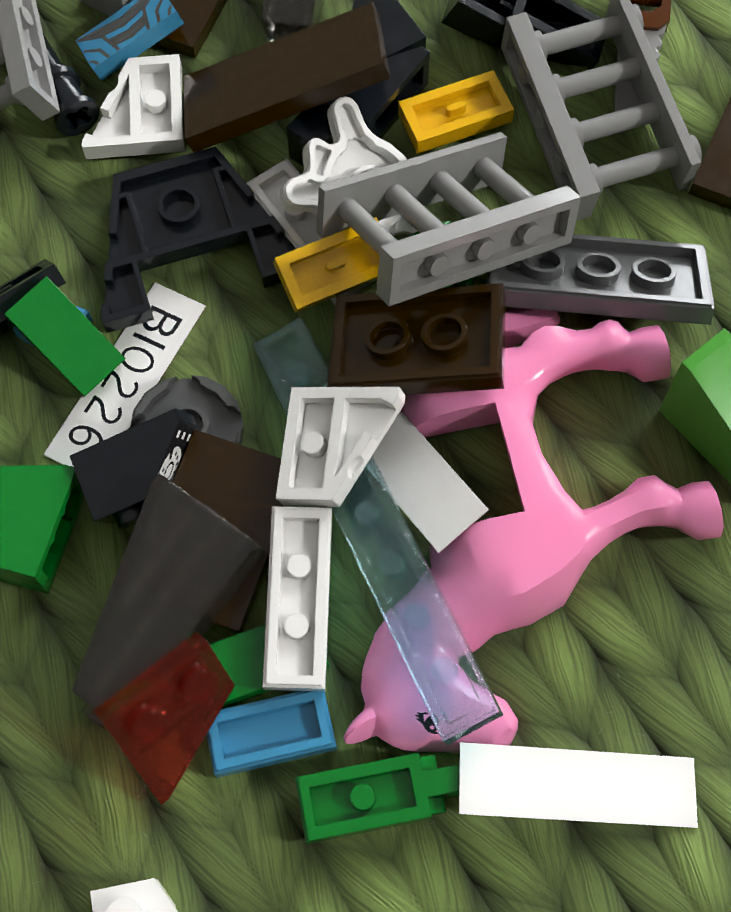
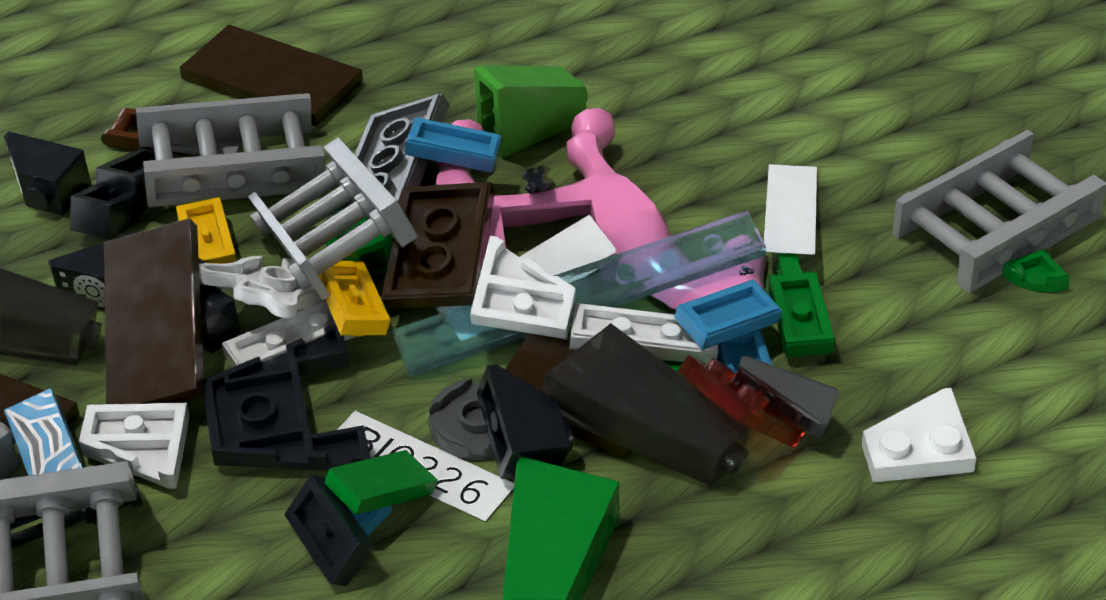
camera: 85 degrees left, 25 degrees down
(190, 777) = (792, 395): none -> dark grey slope
(323, 696) = (727, 314): none -> dark azure tile
(554, 441) = (537, 179): none -> black axle
(600, 332) = (453, 144): none -> dark azure tile

